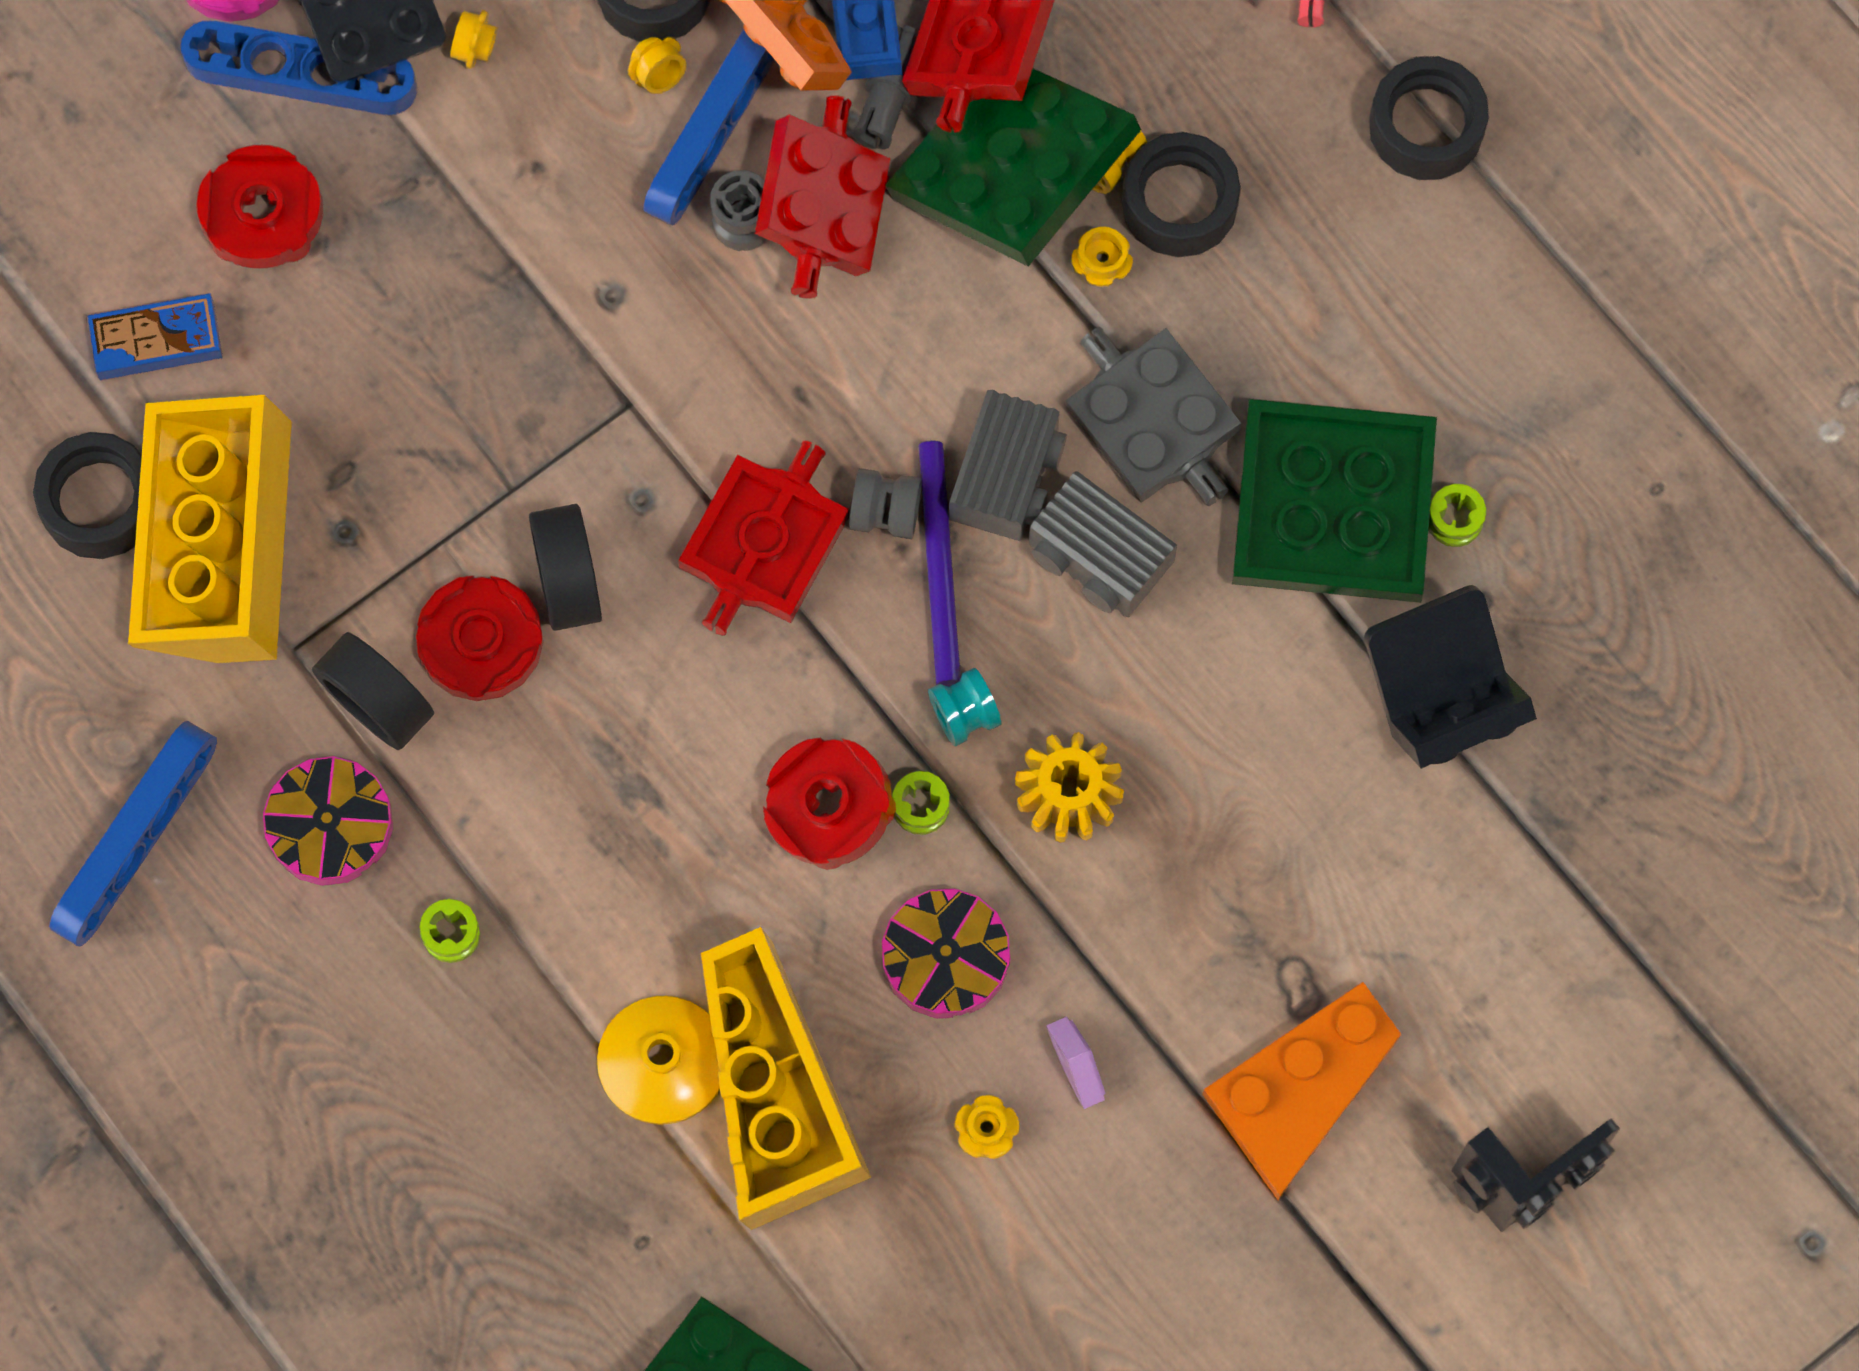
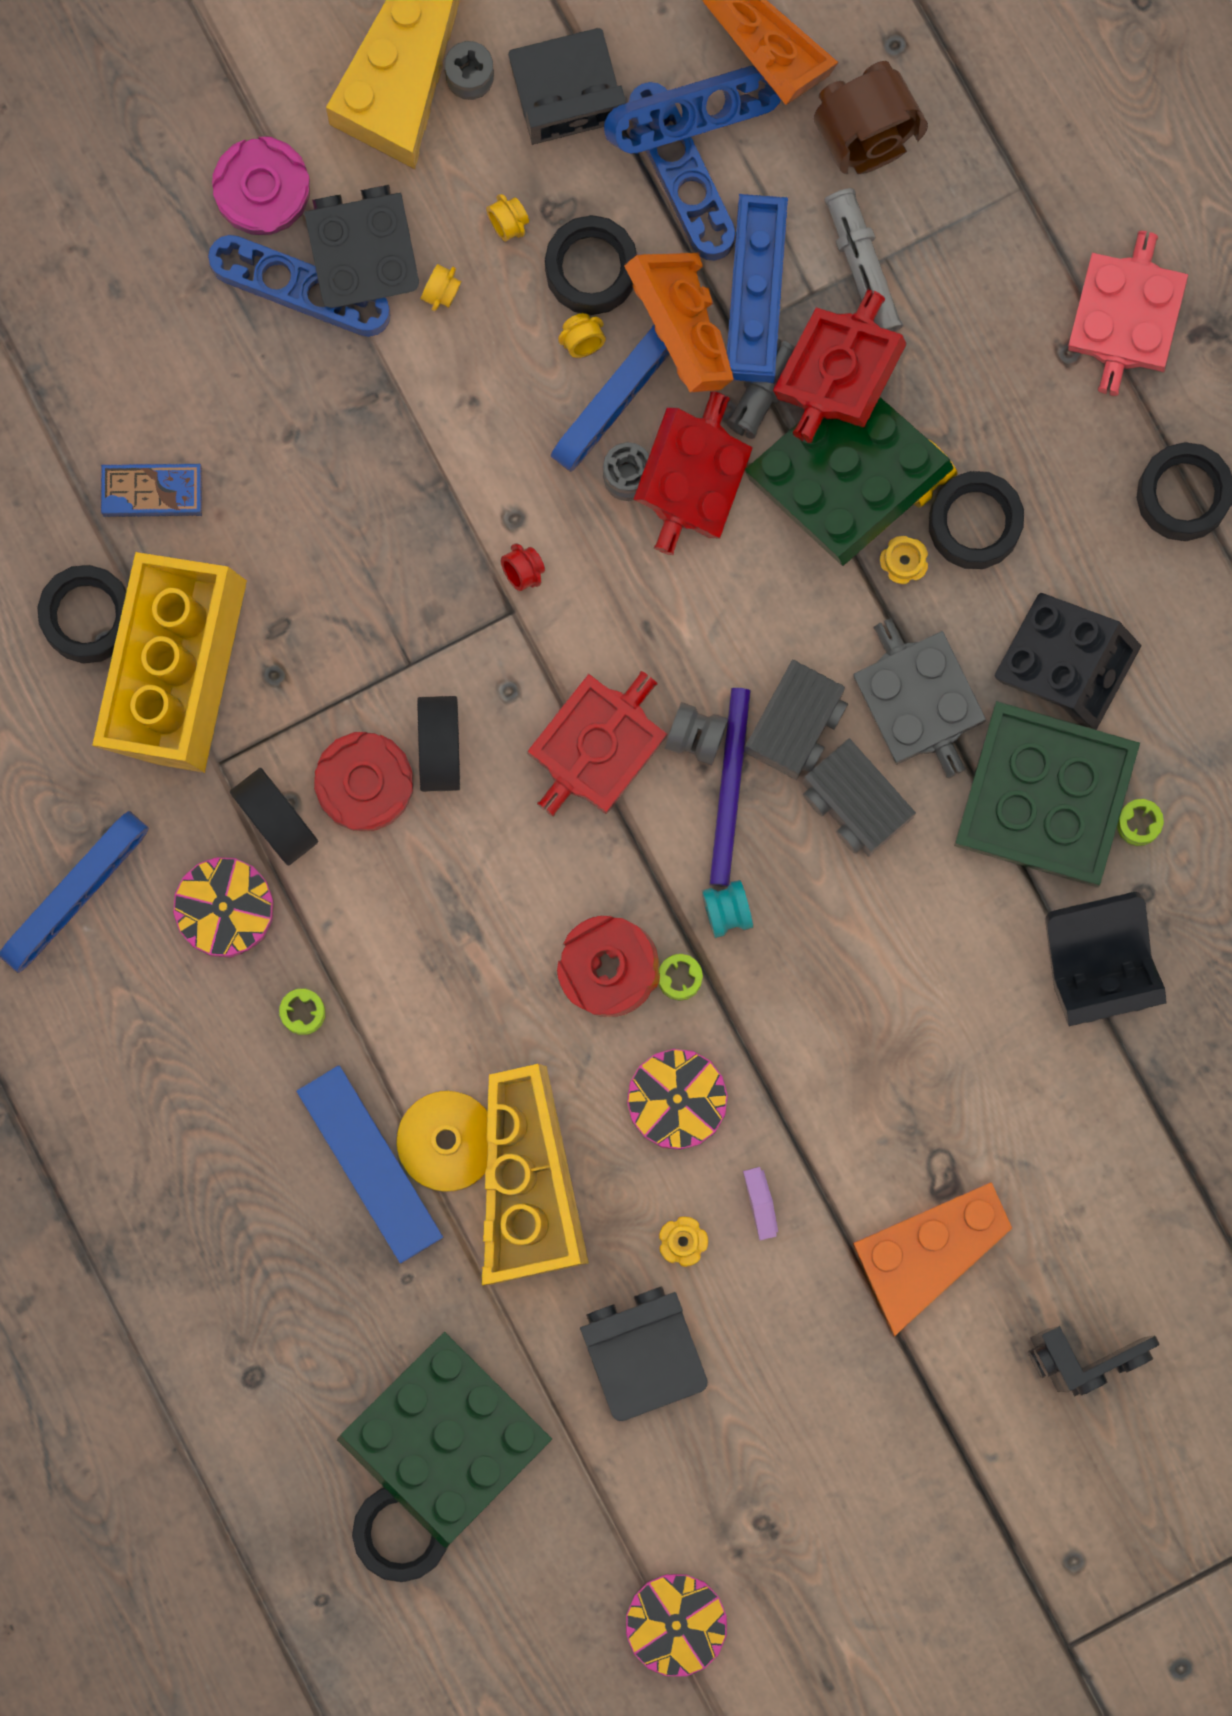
camera: 10 degrees right, 10 degrees up
(267, 241) = (234, 376): red plate -> none
(569, 1105) = (370, 1164): none -> blue tile
(632, 346) = (523, 567): none -> red plate
(962, 1275) = (644, 1354): none -> black bracket
(1093, 791) = (812, 982): yellow gear -> none
(1330, 333) = (1069, 658): none -> black bracket

